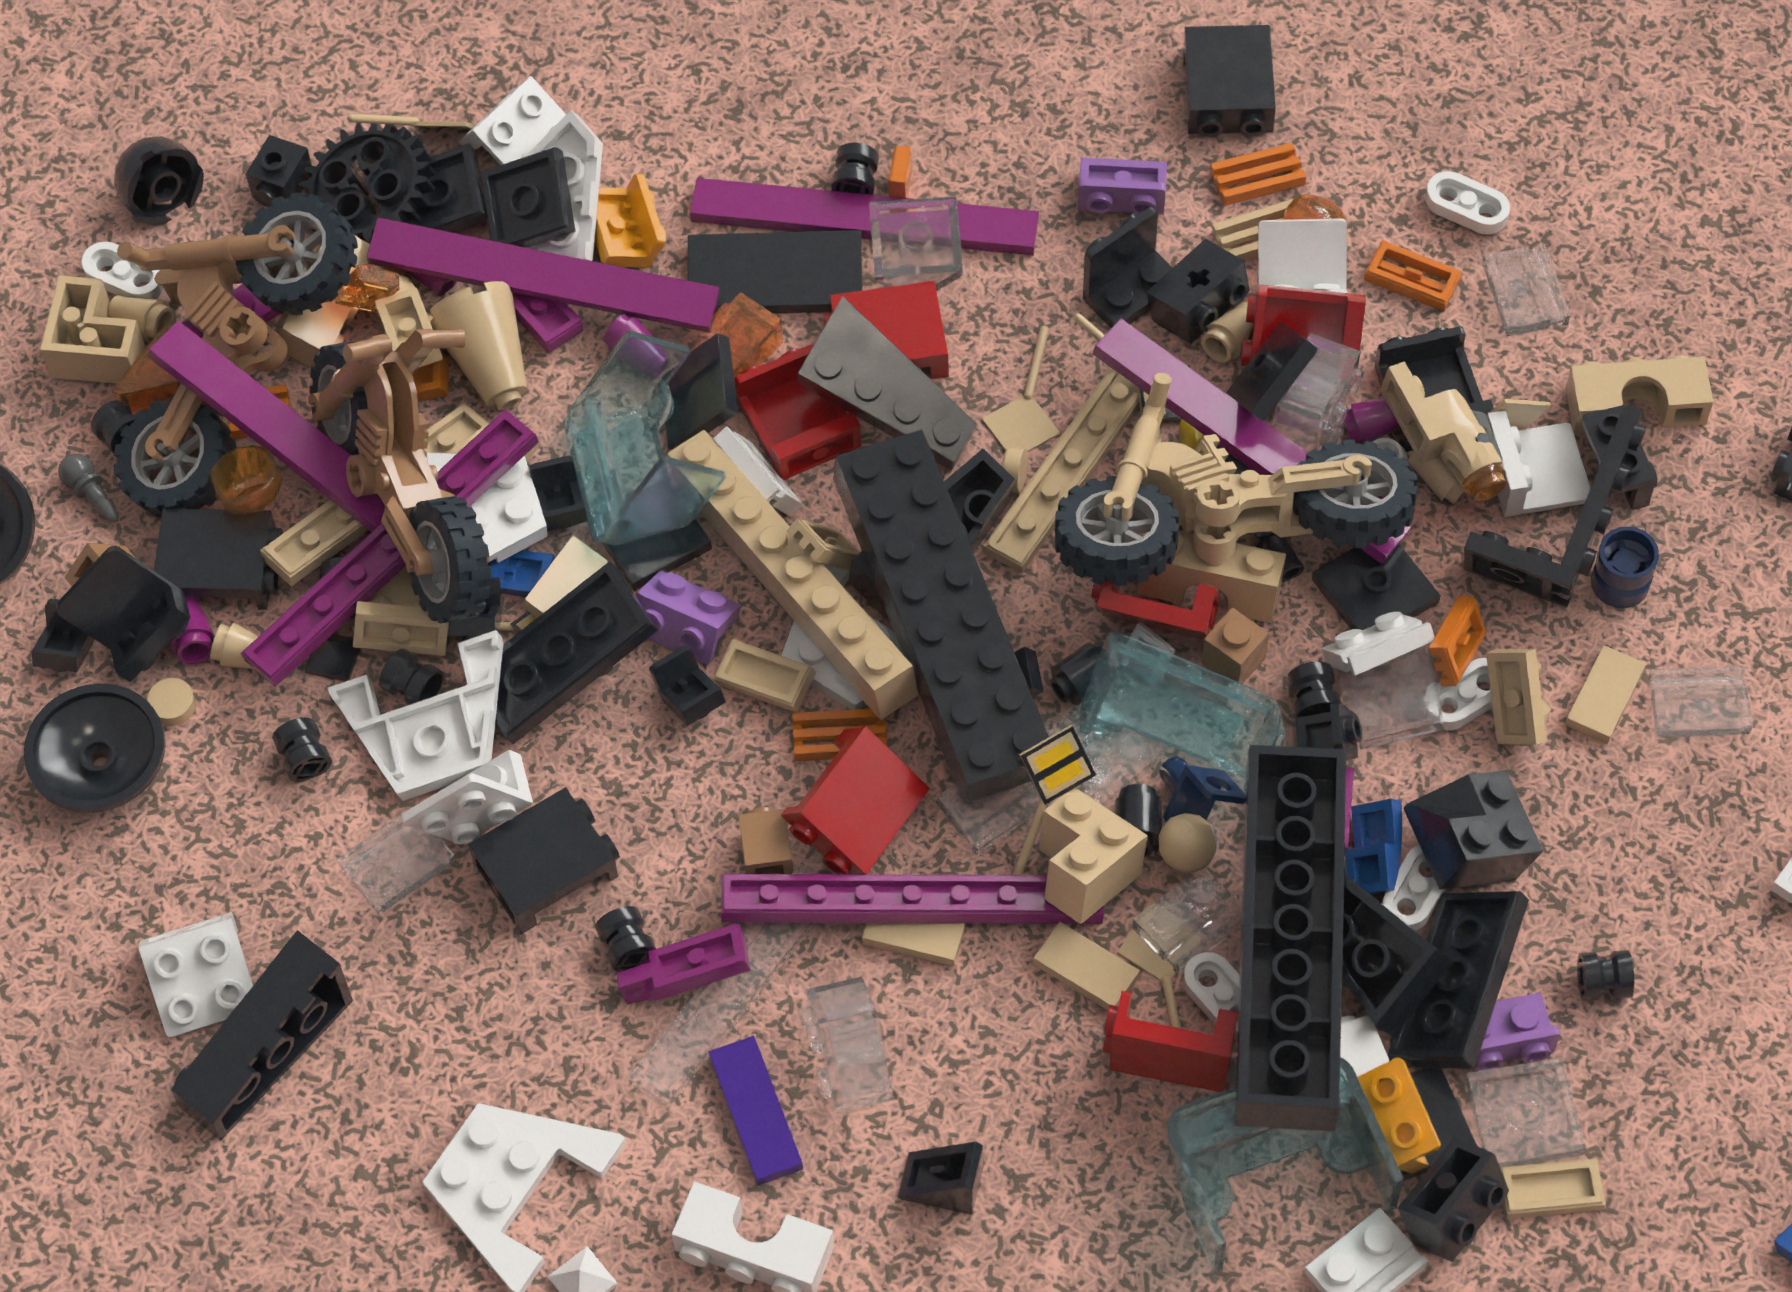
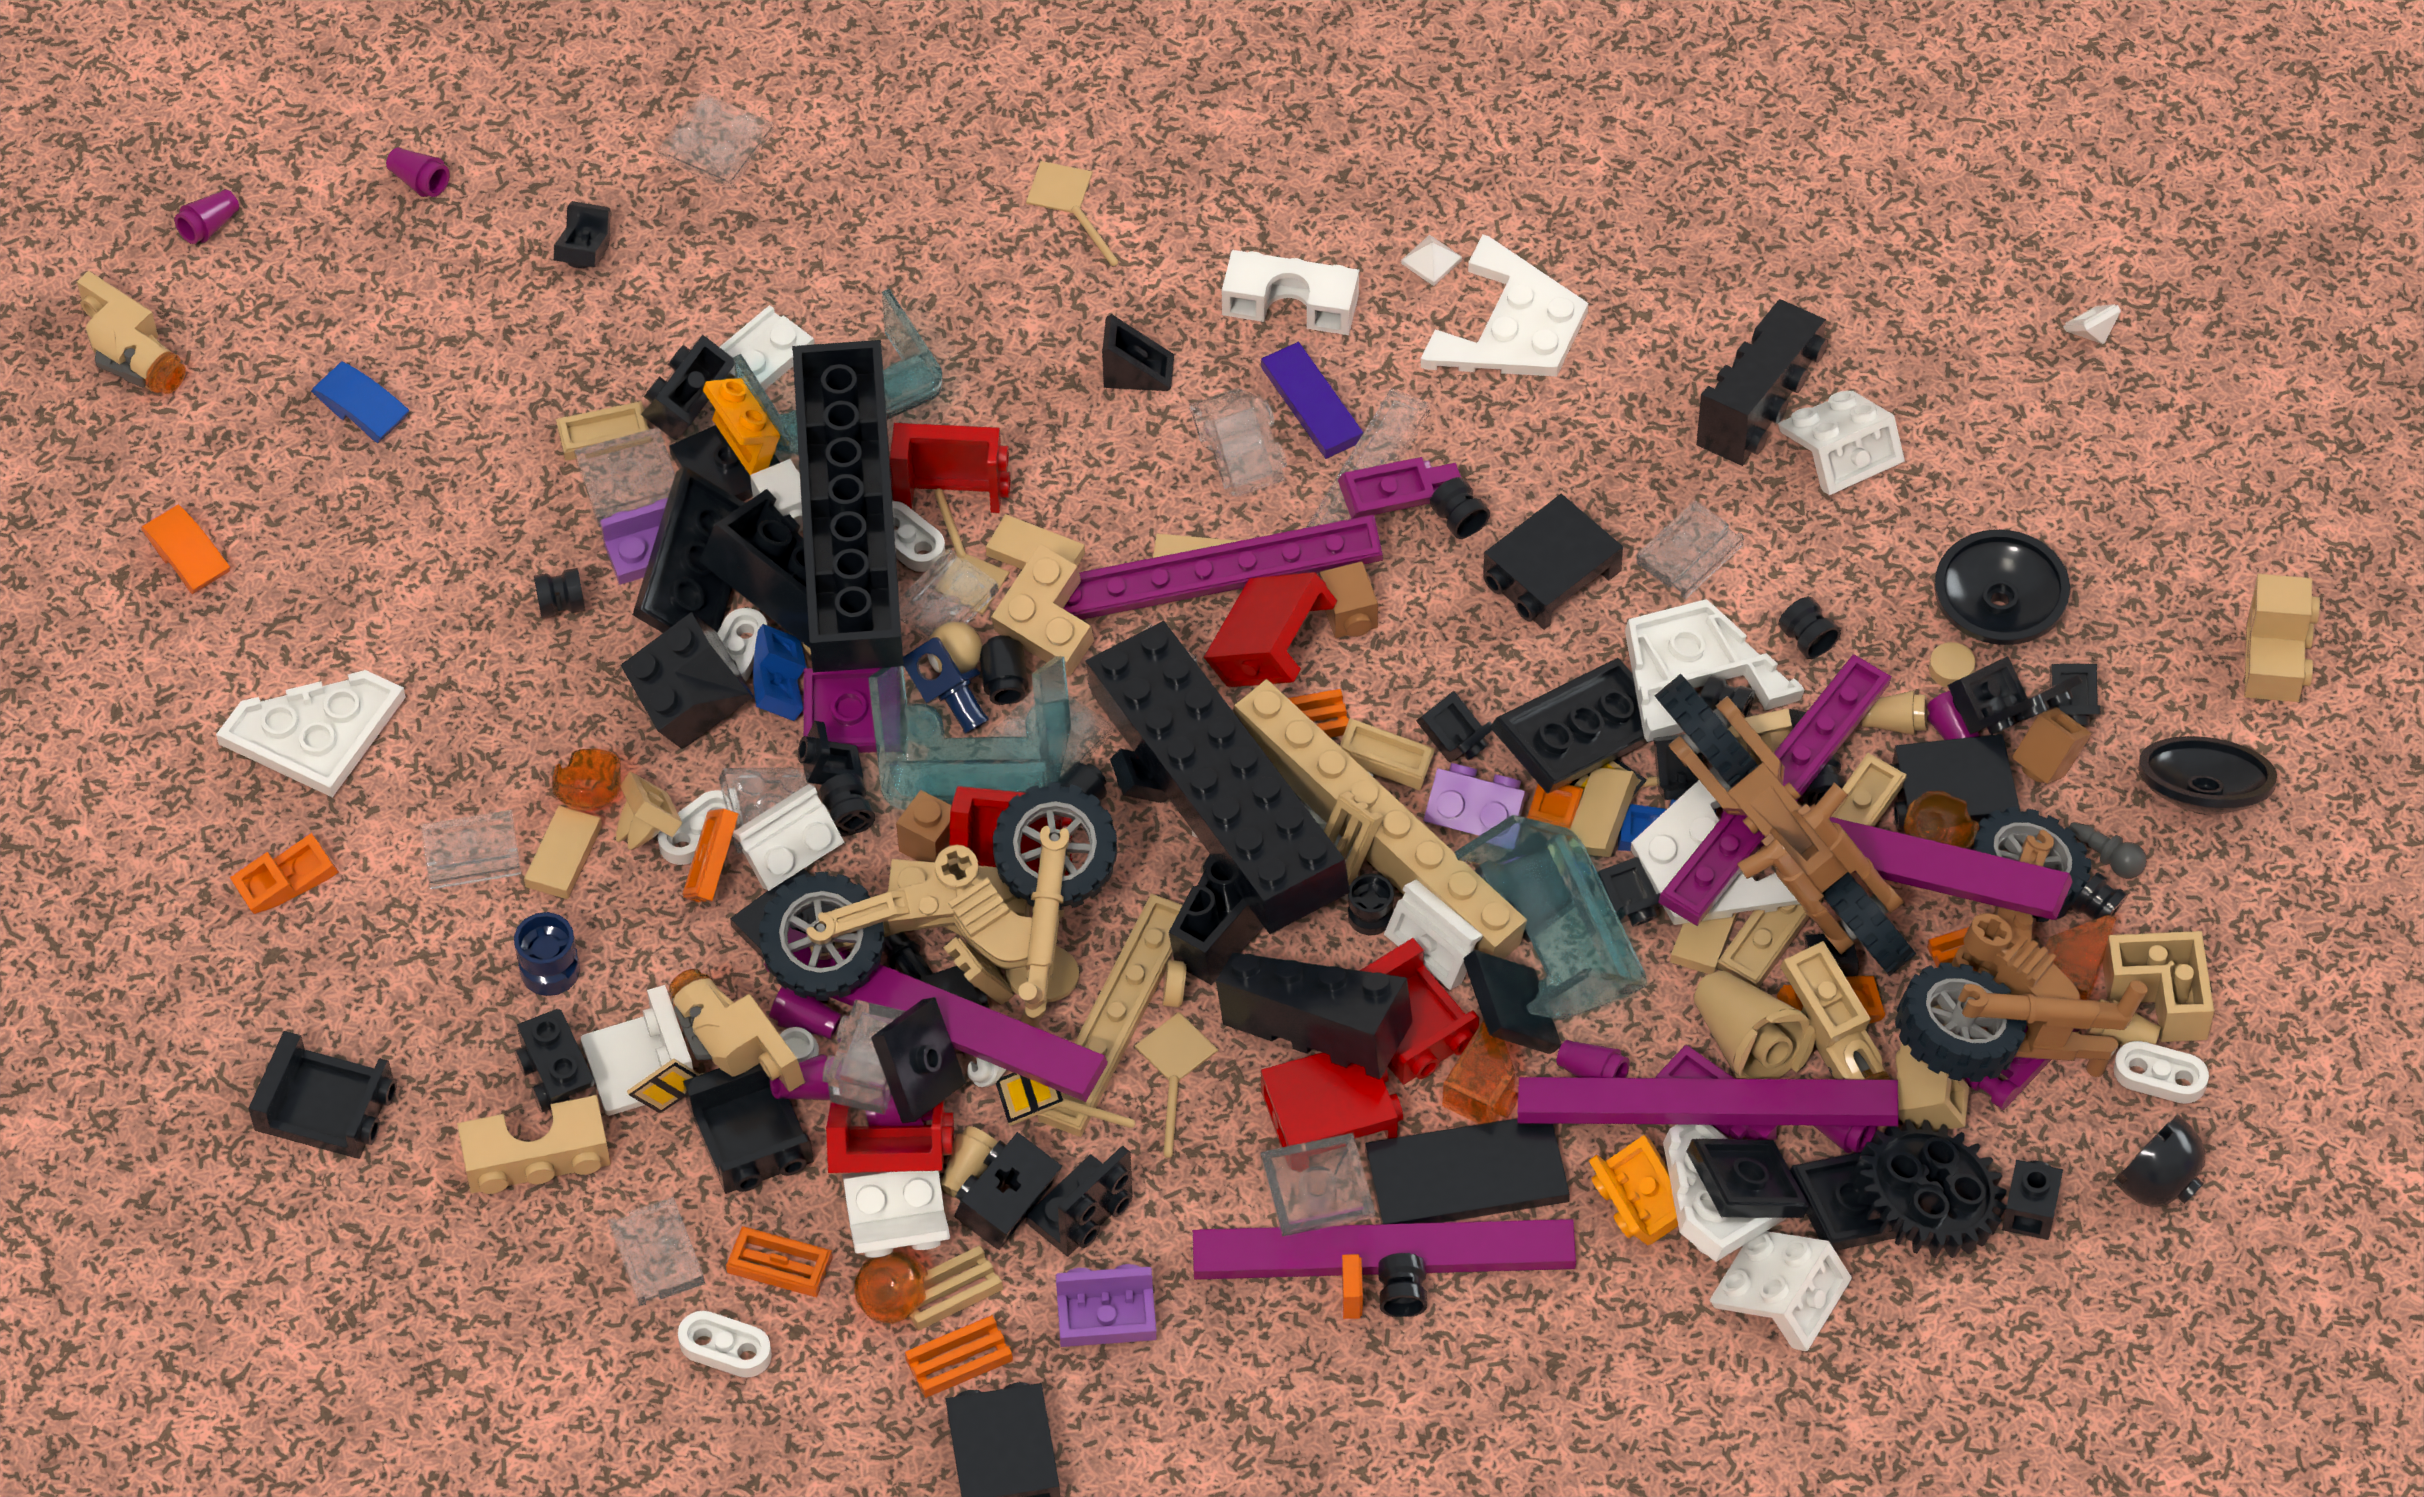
camera: 170 degrees right, 5 degrees down
(366, 286) = (1878, 1034): clear orange bracket -> none
(402, 120) = (1876, 1274): tan piece -> none
(474, 801) = (1619, 576): white bracket -> none
(811, 506) = (1370, 904): none -> black wheel
(1054, 768) = (1092, 650): piece -> none
(1533, 569) = (629, 922): black bracket -> none
(1580, 747) = (588, 780): none -> clear orange hair

